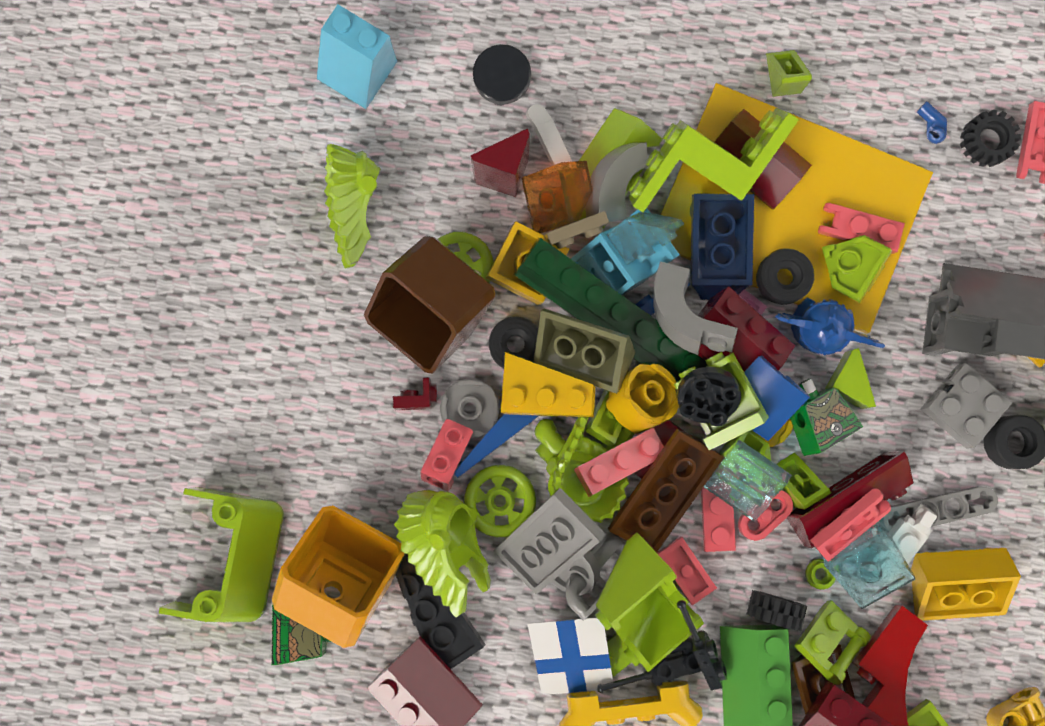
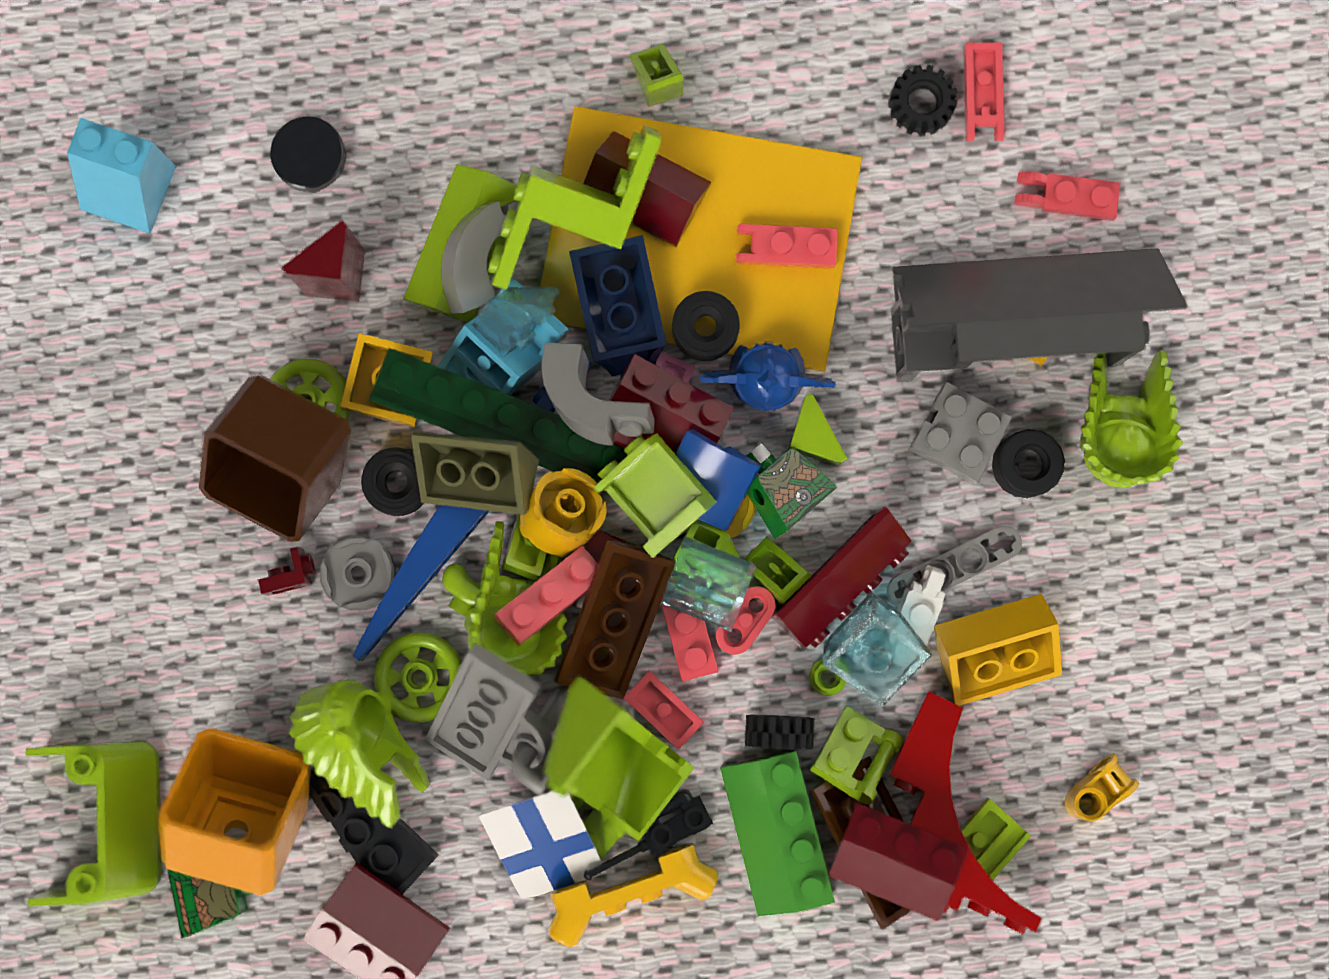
camera: 15 degrees left, 0 degrees up
(349, 186) = (149, 338): lime piece -> none
(446, 455) = (339, 636): coral bracket -> none
(543, 391) = (438, 532): yellow wing -> none
(548, 134) = (385, 222): white piece -> none
(557, 195) = (405, 288): clear orange slope -> none
(589, 226) = (448, 319): dark tan plate -> none
(705, 652) = (702, 802): black piece -> none
(708, 395) = (636, 492): black tile -> none
(851, 524) = (841, 608): coral hinge -> none
(855, 265) = (787, 293): lime plate -> none
(935, 121) = (854, 96): blue arm -> none

